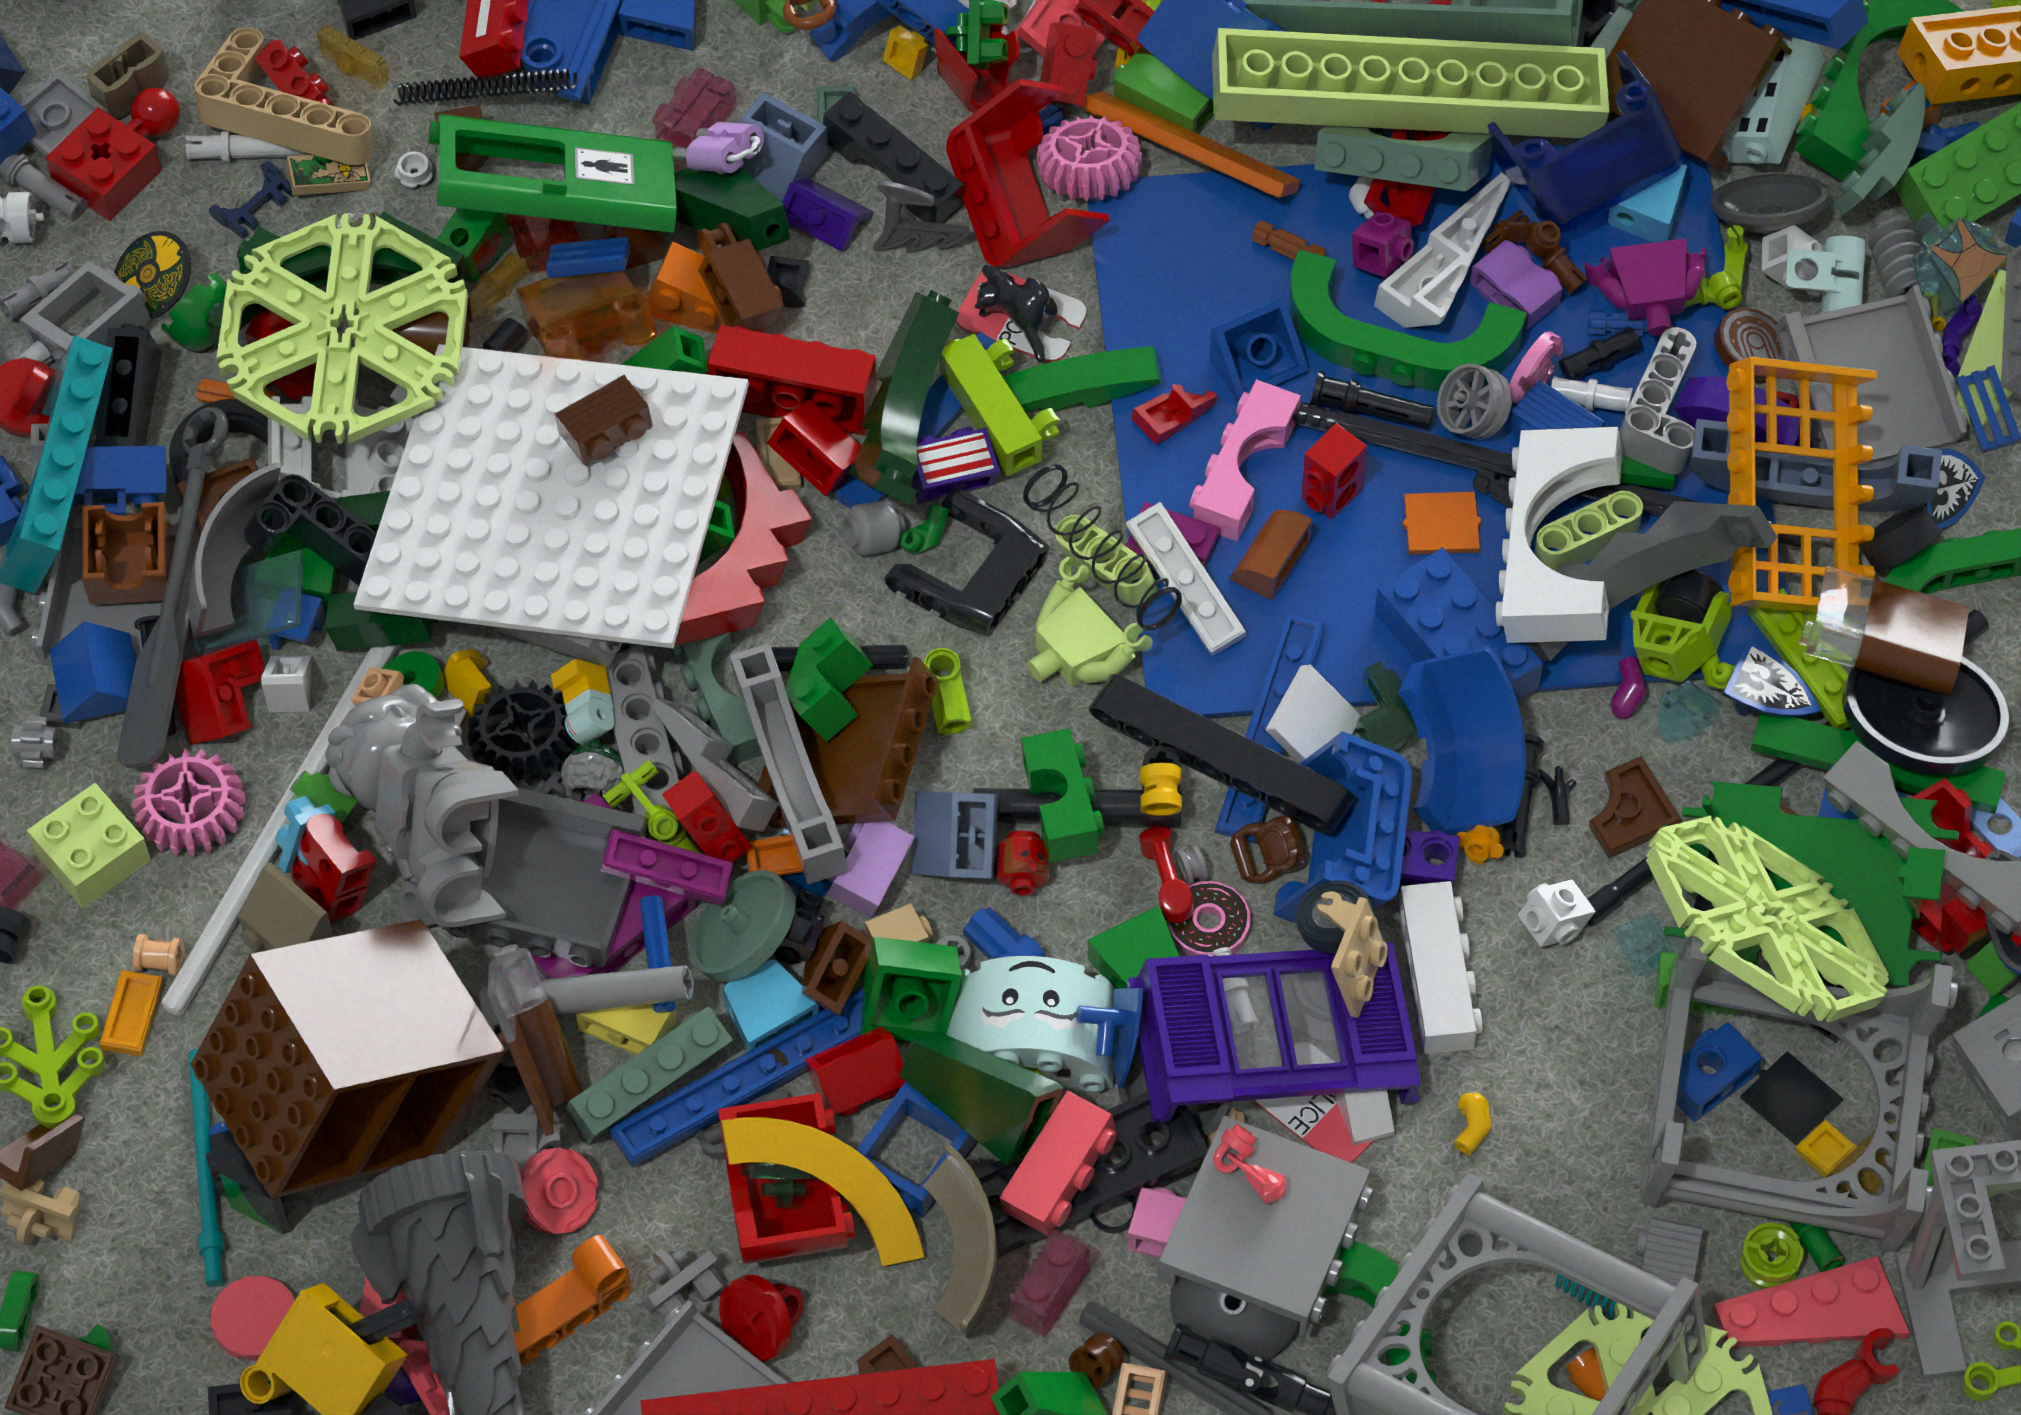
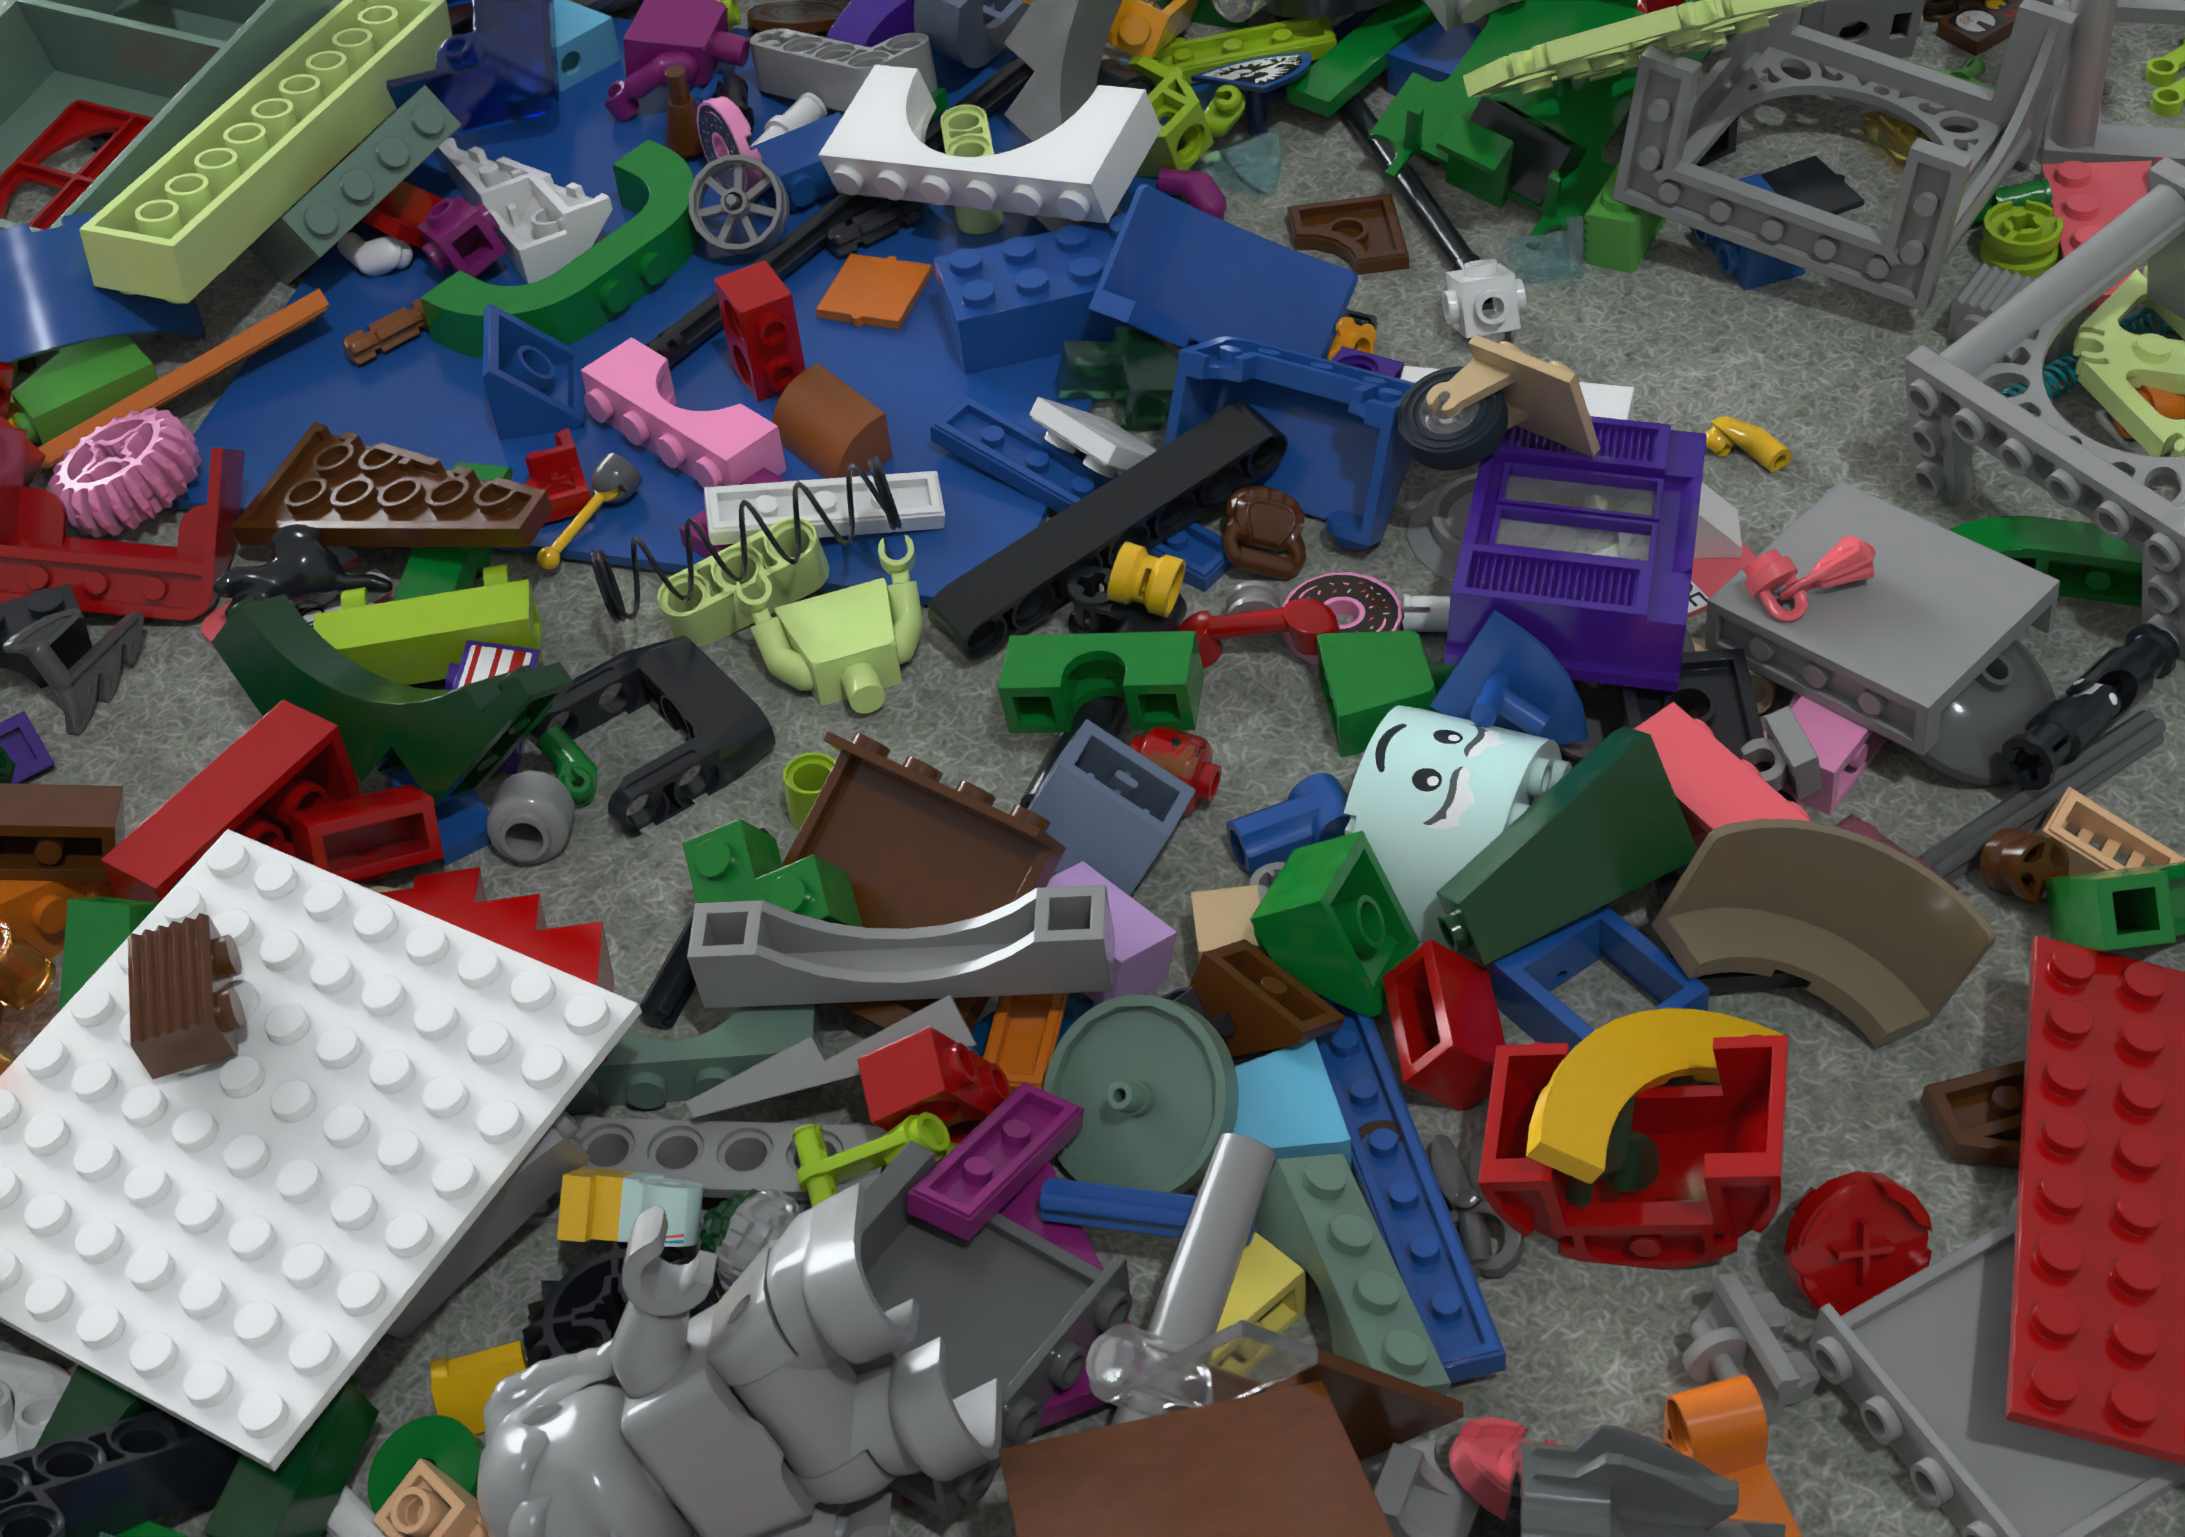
camera: 65 degrees left, 15 degrees down
(1098, 313) = (389, 499): none -> reddish brown wing
(1118, 1199) = (1789, 752): none -> light grey tile
(1174, 445) = (613, 483): none -> hinge
(1352, 397) = (656, 312): black pin -> none
(1514, 281) = (588, 152): medium lavender brick -> none
(1541, 240) = (562, 110): reddish brown pin -> none
(1572, 325) = (681, 117): none -> reddish brown cone
(1824, 1148) = (1876, 177): yellow tile -> none

